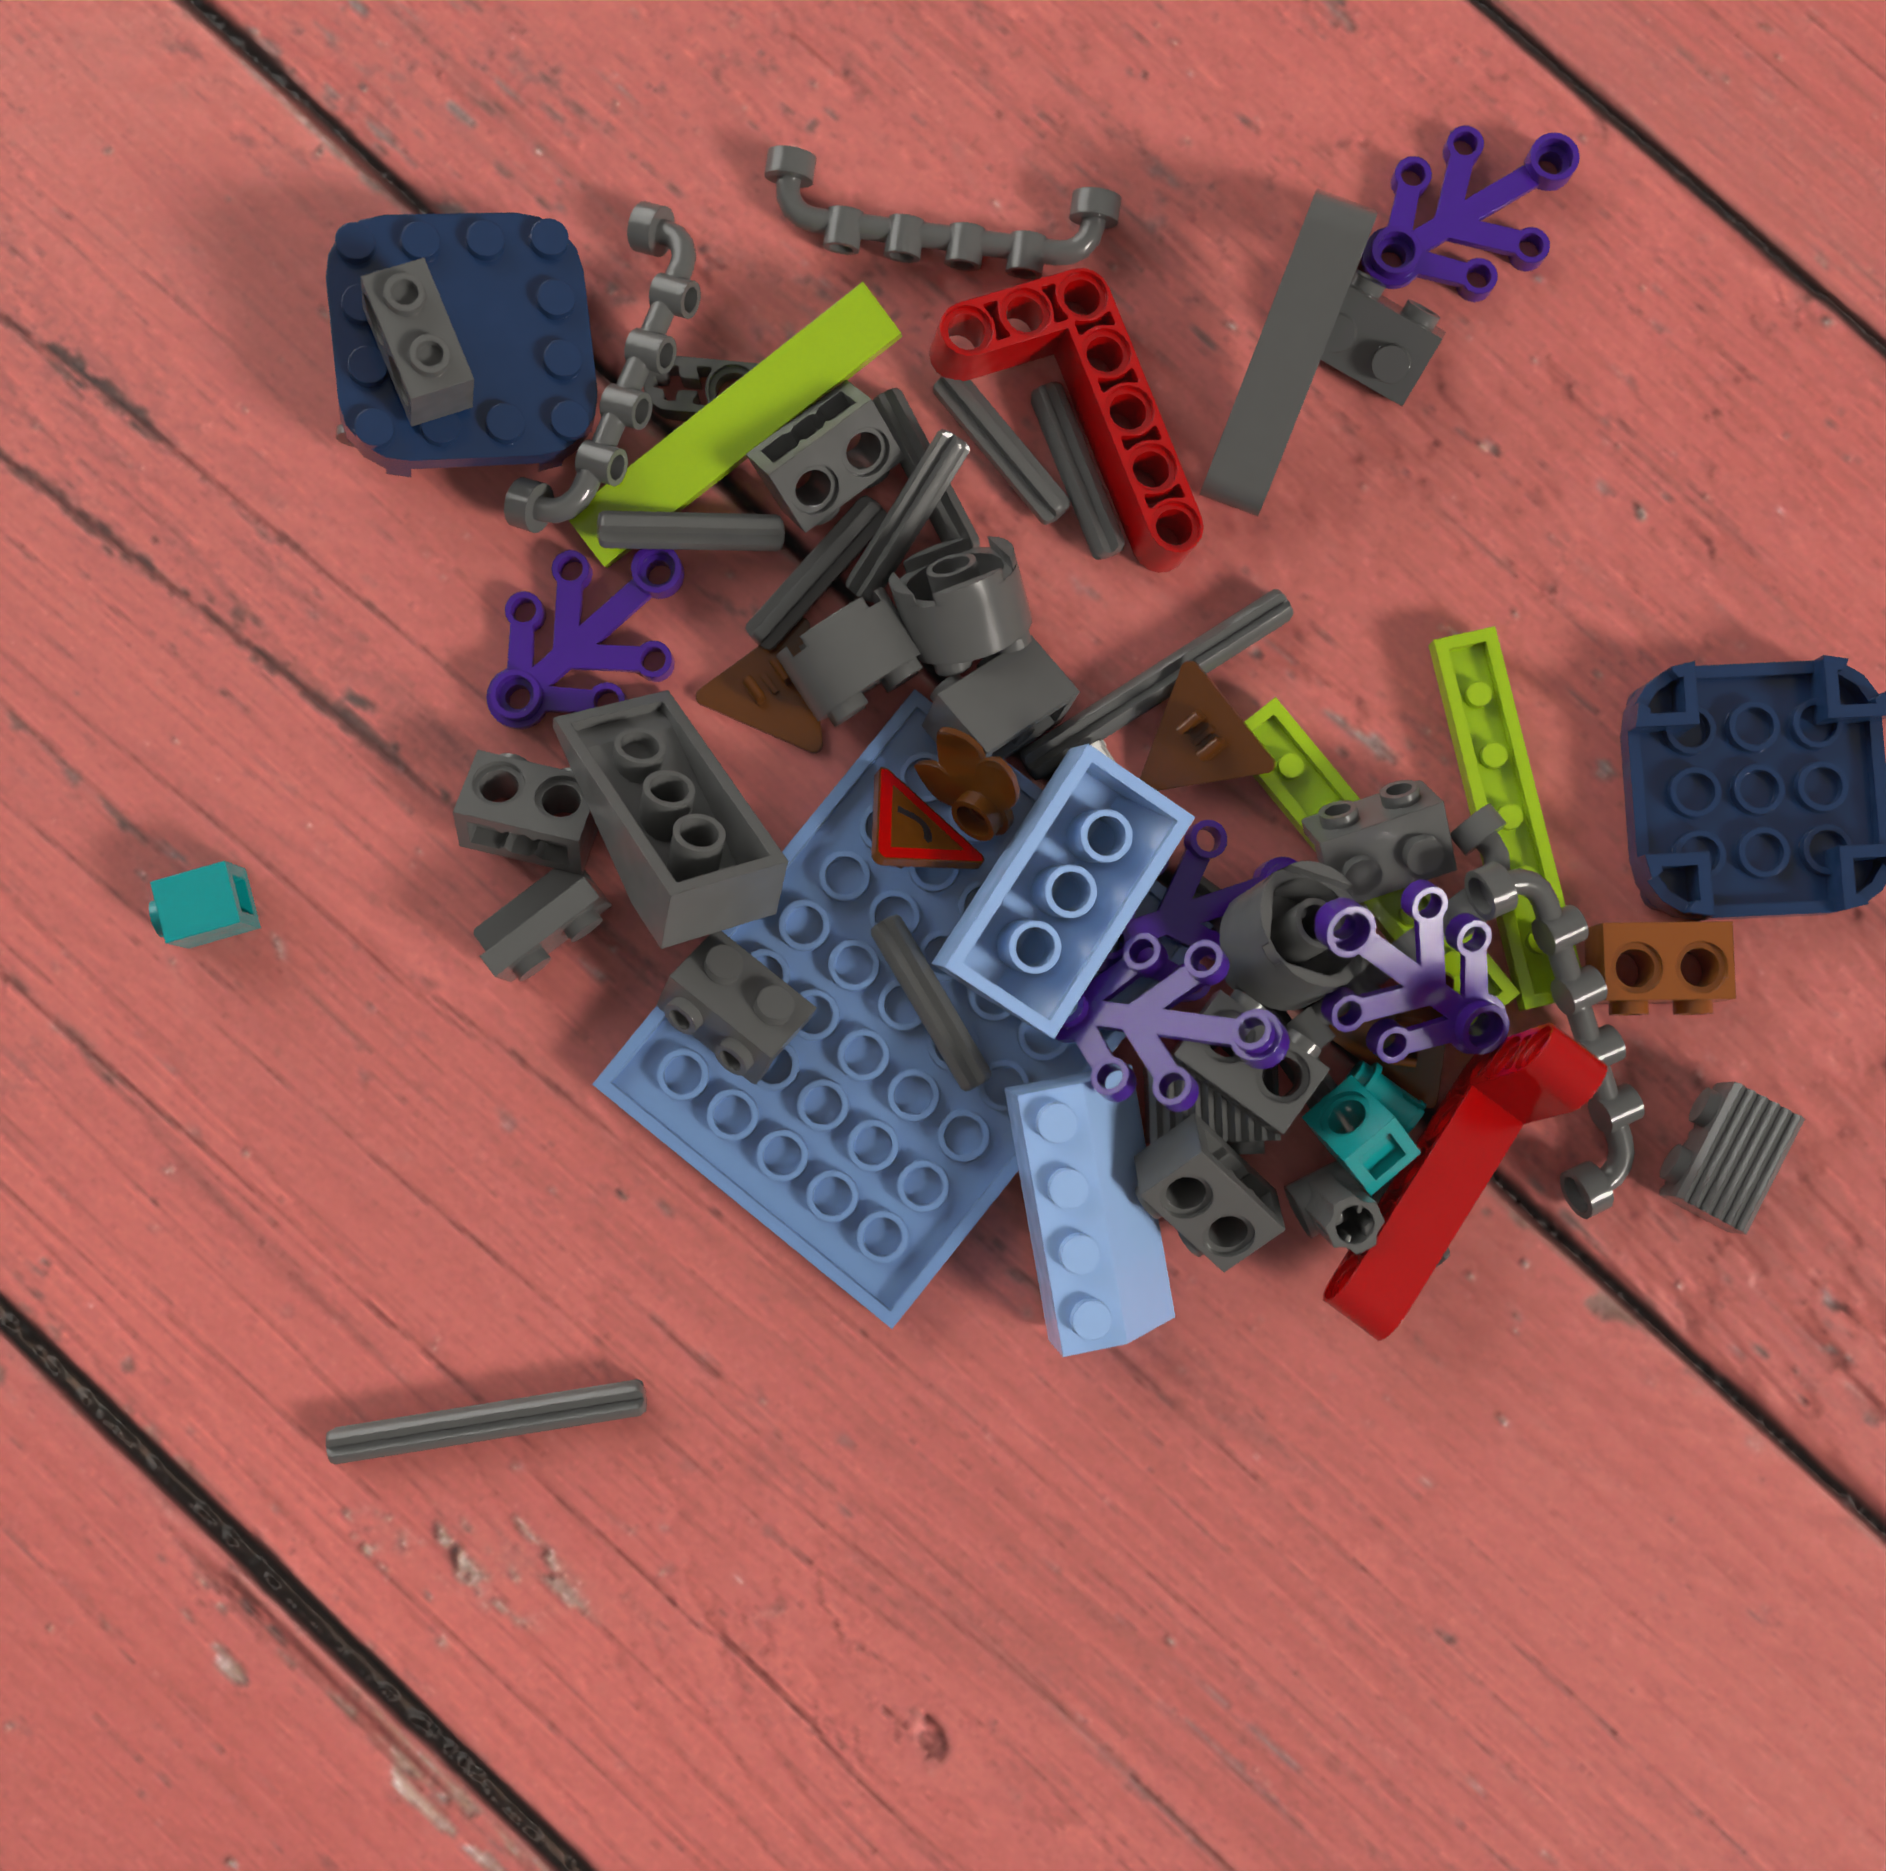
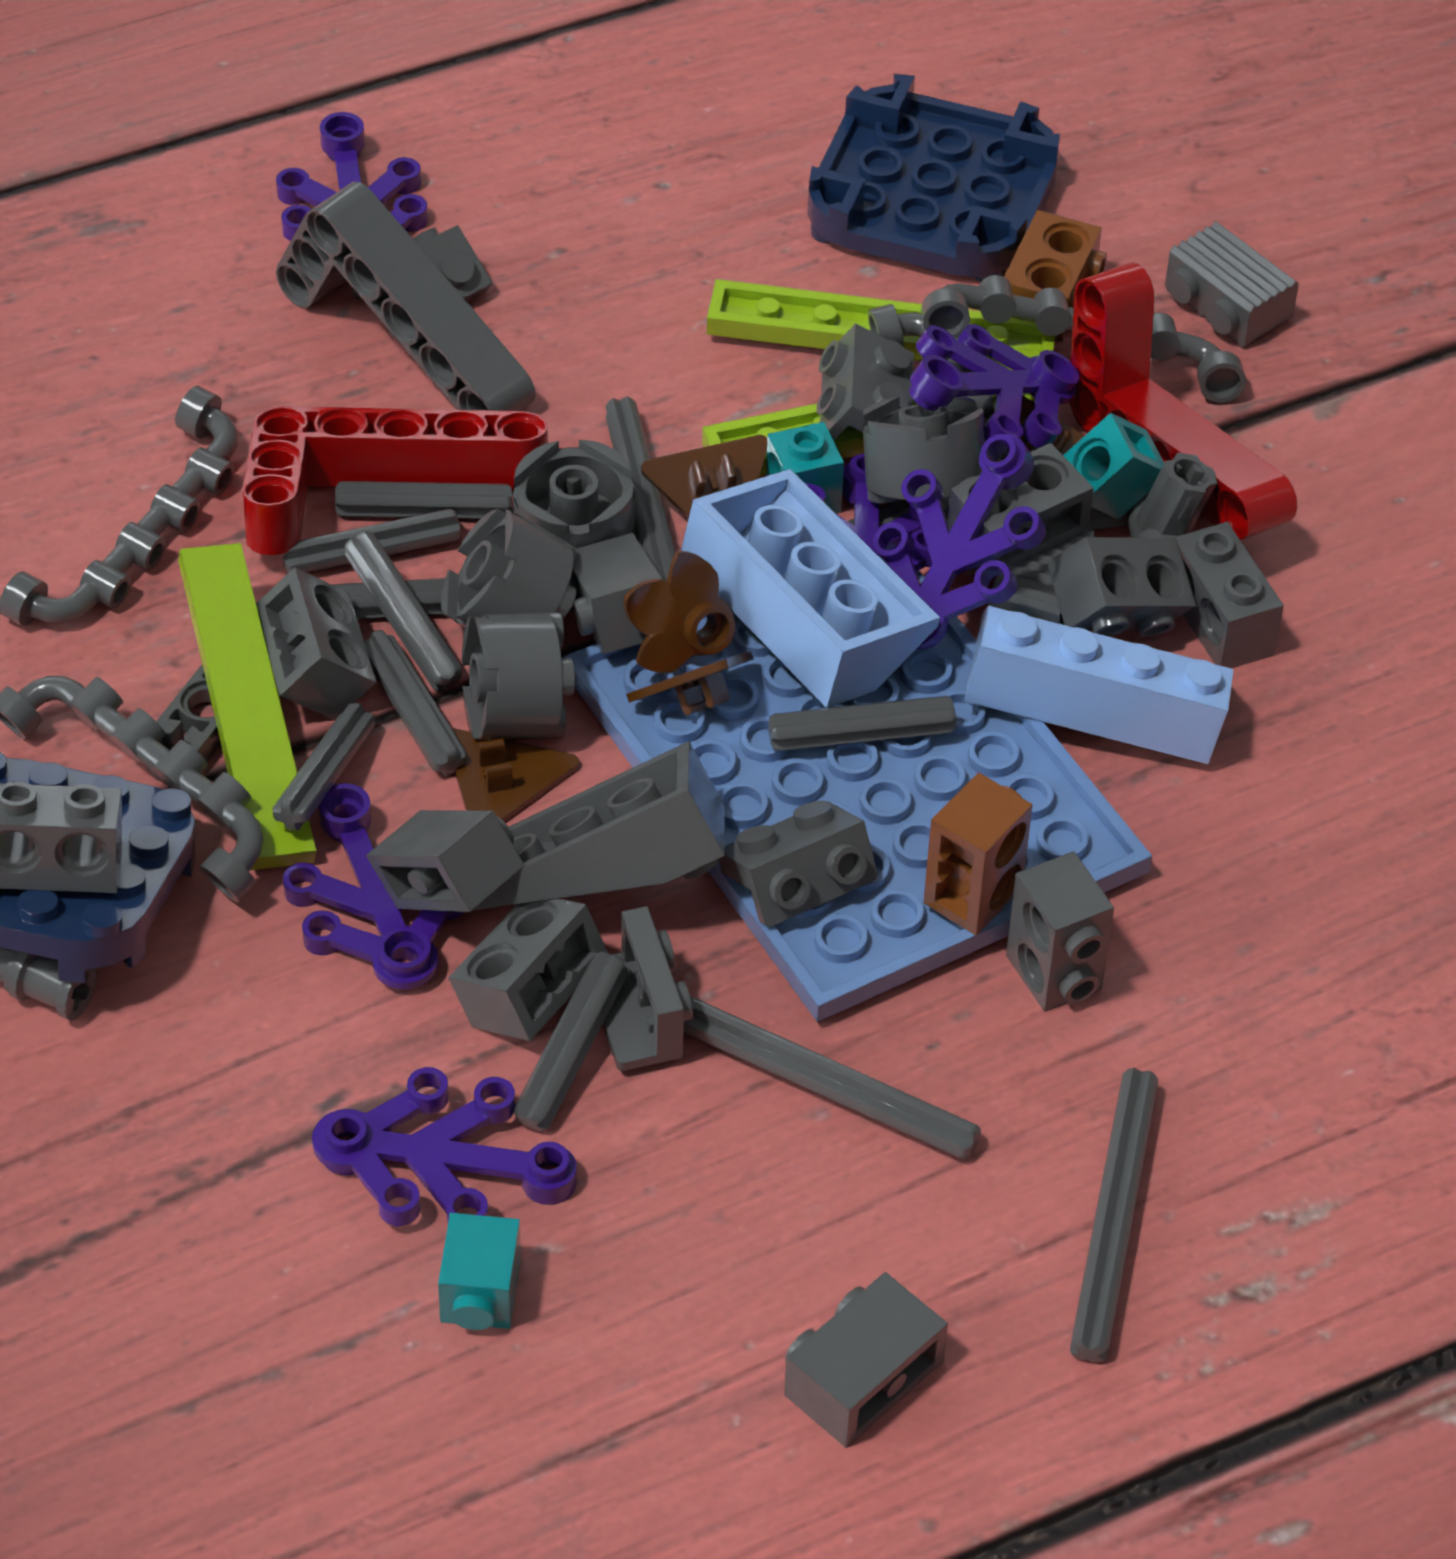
camera: 75 degrees left, 35 degrees down
(239, 1260) = (864, 1358): none -> dark grey brick
(319, 812) = (437, 1149): none -> dark purple plant
(473, 881) = (571, 1041): none -> dark grey axle
(533, 1118) = (832, 1080): none -> dark grey axle
(583, 694) = (446, 860): none -> dark grey brick
(738, 1281) = (1059, 931): none -> dark grey brick
(771, 1181) = (976, 852): none -> dark orange brick
(1137, 620) = (576, 492): none -> dark grey brick
(1256, 819) = (811, 456): none -> teal brick
(1261, 1294) = (1235, 605): none -> dark grey brick

